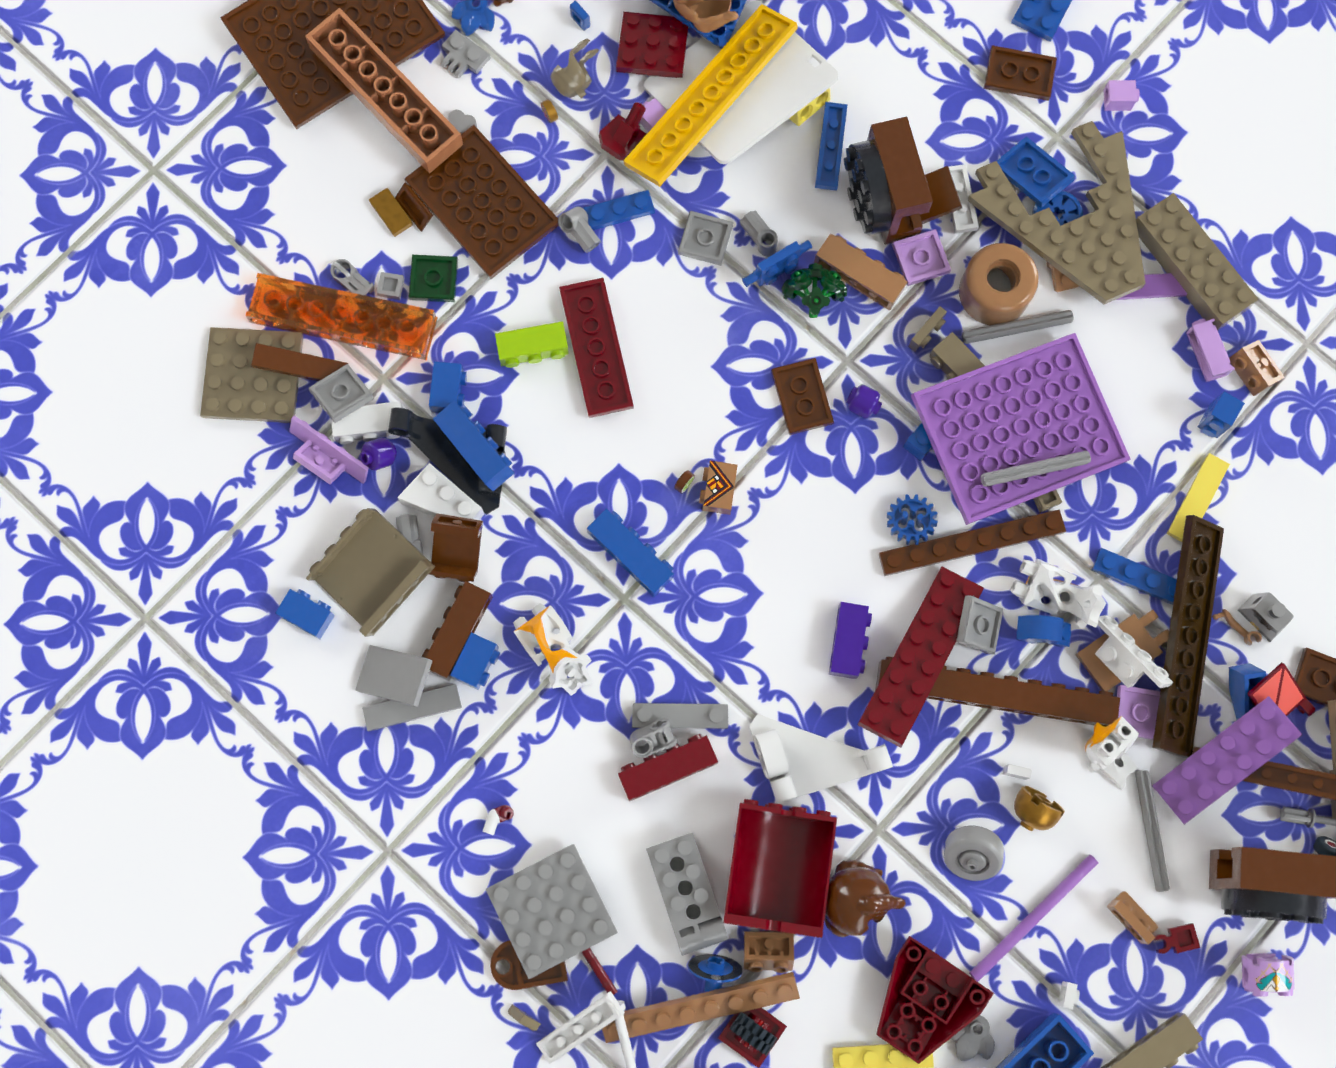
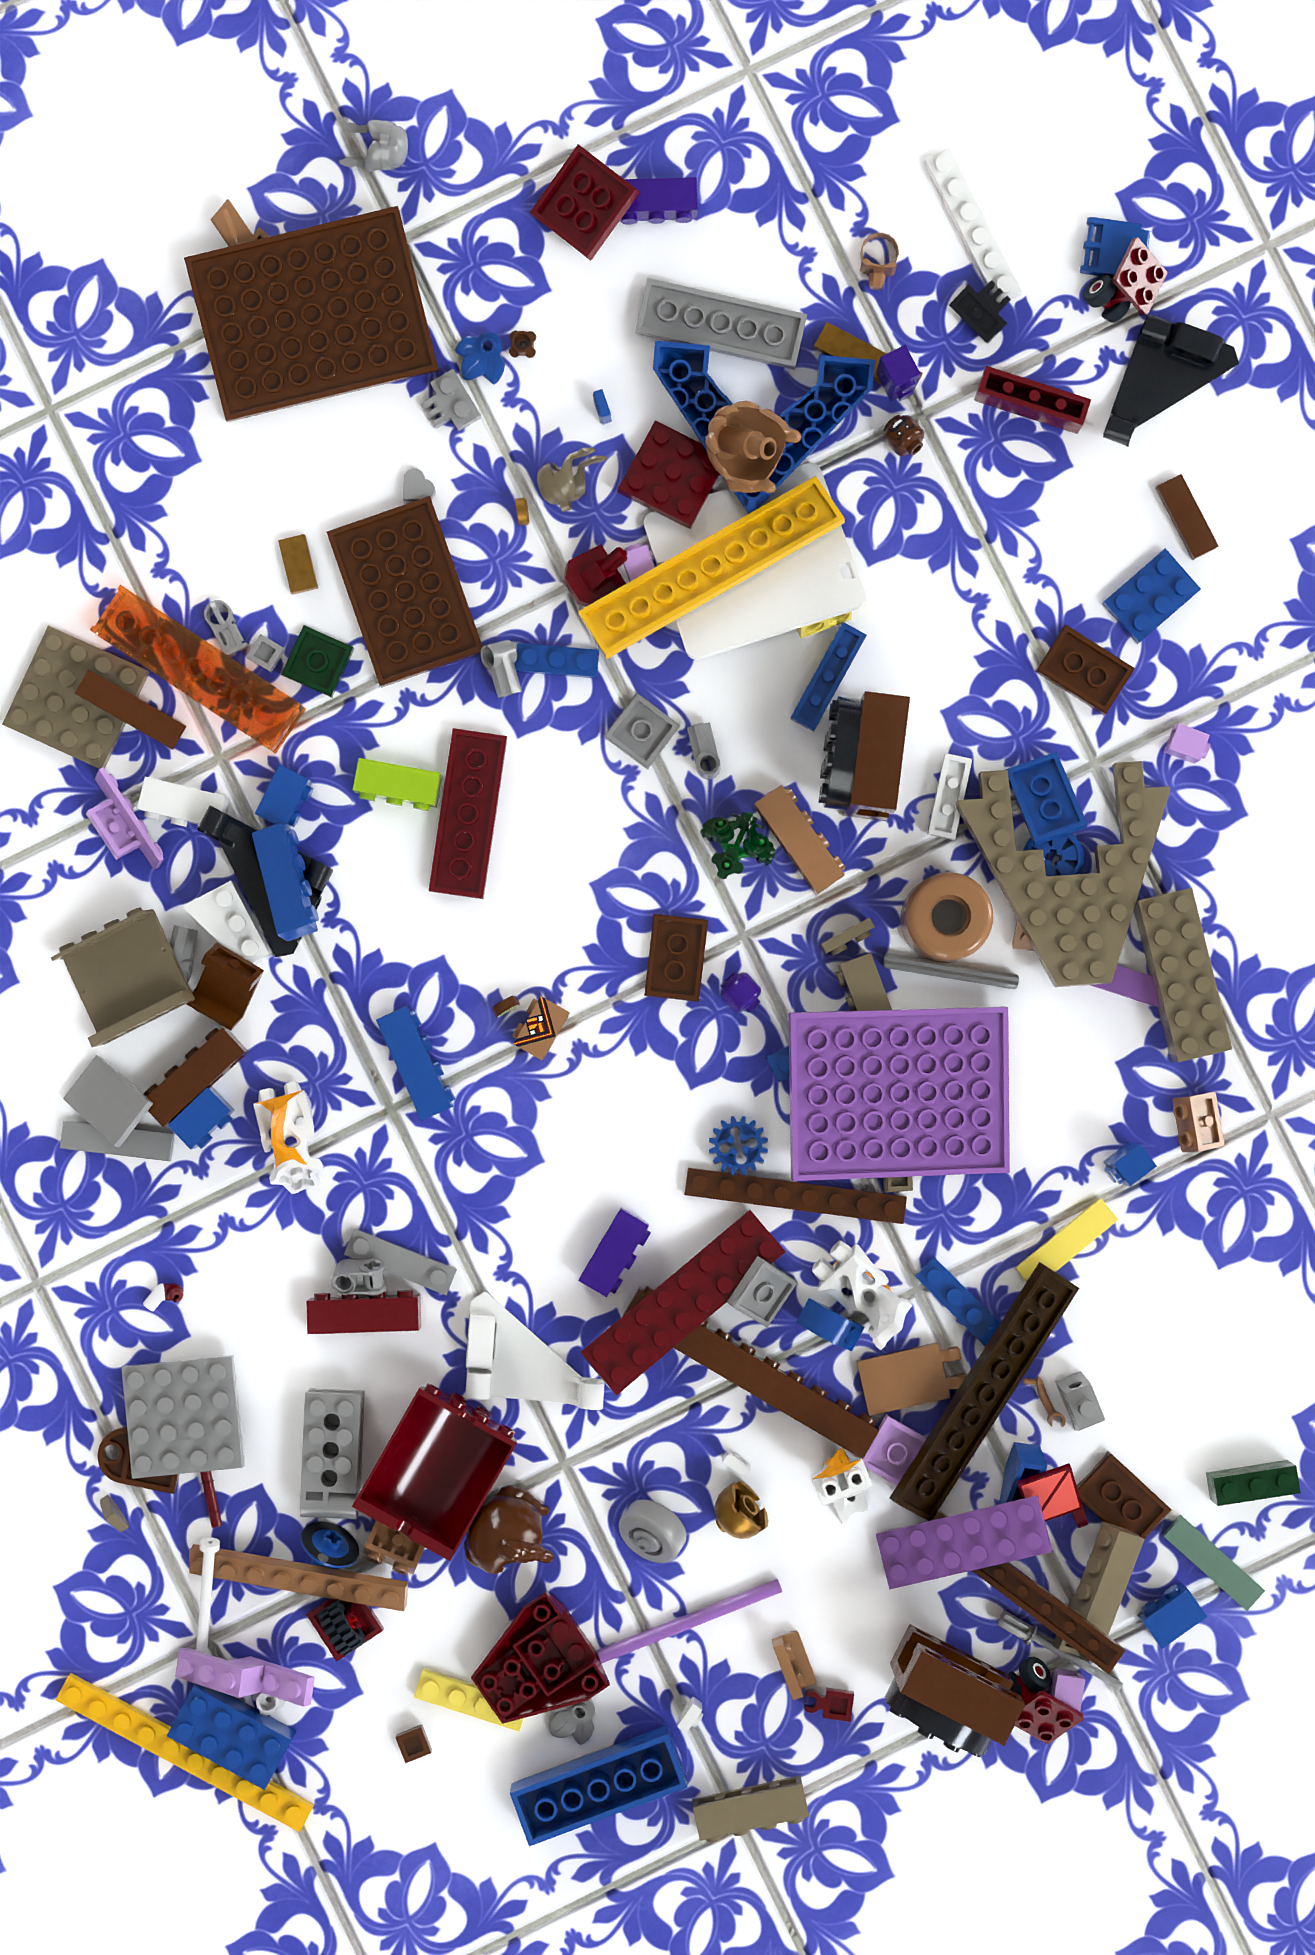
camera: 25 degrees right, 10 degrees up
(304, 613) = (38, 994): blue brick -> none
(341, 393) = (163, 762): light grey tile -> none
(378, 453) = (180, 846): dark purple head -> none
(384, 90) = (338, 420): nougat brick -> none
(413, 206) = (326, 568): reddish brown tile -> none
(580, 1027) = (165, 1550): white tile -> none
(778, 263) = (696, 801): blue plate -> none
(921, 257) = (875, 849): lavender plate -> none
(943, 194) = (924, 782): reddish brown tile -> none
(1035, 468) = (893, 1147): light grey axle -> none
(1126, 658) = (904, 1390): white bracket -> none
(1152, 831) = (855, 1580): light grey axle -> none
(1209, 350) = (1154, 1082): lavender window -> none
(1267, 974) = (907, 1778): lavender brick -> none

